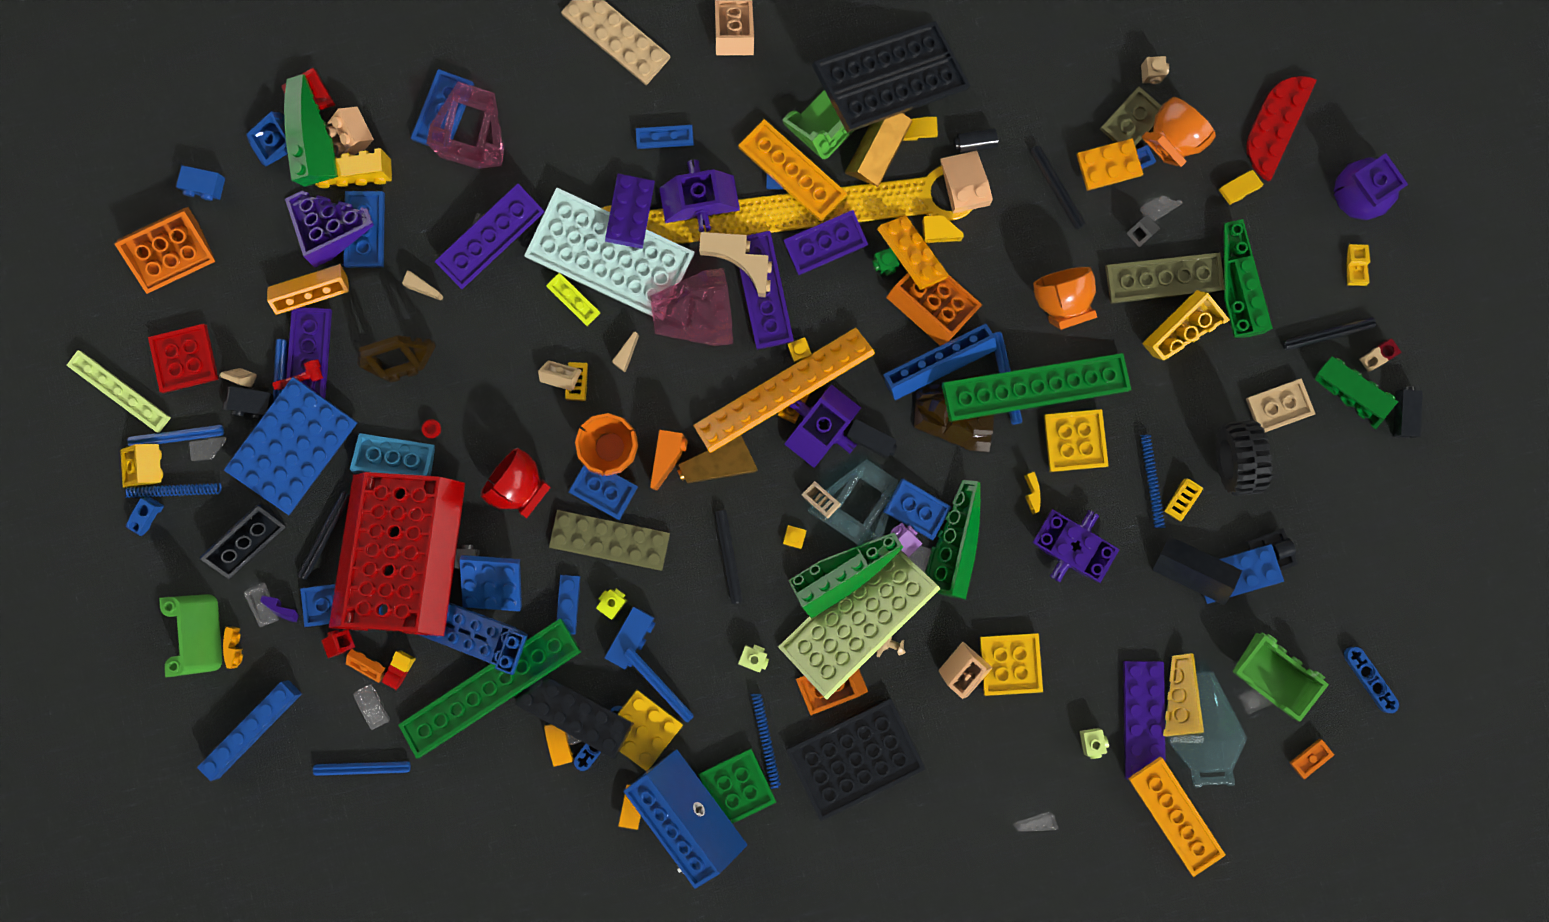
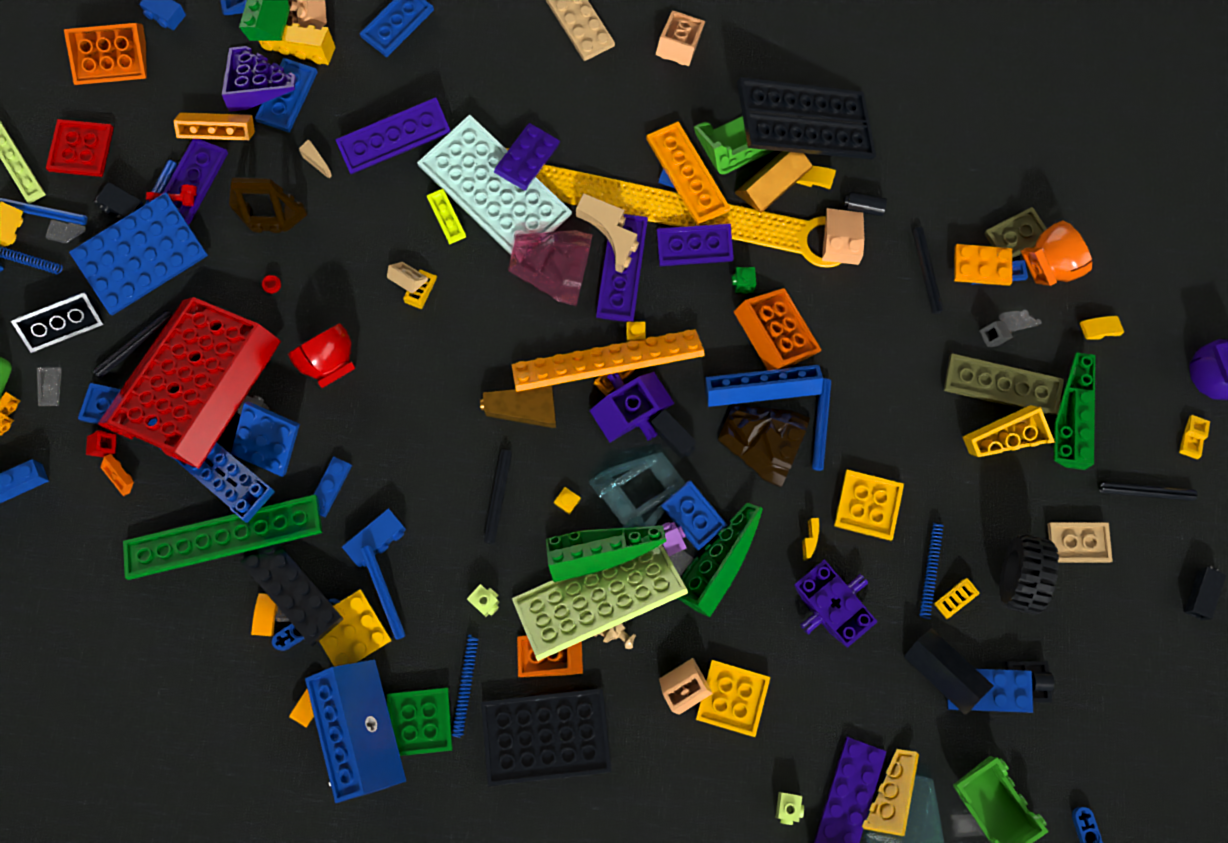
camera: 15 degrees right, 10 degrees down
(240, 377) = (122, 180): tan slope -> none
(274, 605) = (60, 391): dark purple slope -> none
(361, 768) = (71, 570): blue axle -> none
(371, 707) = (105, 515): clear slope -> none
(392, 456) = (226, 294): dark azure slope -> none
(398, 669) = (146, 489): leg -> none
(483, 155) = (383, 40): clear pink windscreen -> none
(604, 492) = (405, 392): blue plate -> none
(606, 444) = (423, 349): orange plate -> none
(609, 540) = (392, 441): olive plate -> none
(611, 602) = (370, 499): neon yellow brick -> none
(624, 355) = (475, 278): tan slope -> none
(664, 136) = (583, 107): blue plate -> none
(668, 453) = (477, 379): orange slope -> none
(699, 196) = (594, 165): dark purple slope -> none
(812, 491) = (600, 463): tan slope -> none
(913, 252) = (772, 279): light orange plate -> none
(939, 229) = (805, 269): yellow slope -> none
(1036, 387) = (846, 438): green plate -> none
(1067, 296) = (904, 366): orange plate -> none
(1154, 69) = (1051, 197): tan brick -> none
(1276, 123) = (1153, 283): red plate -> none
(1356, 391) = (1160, 554): green wedge -> none
(1380, 355) = (1193, 527): leg -> none

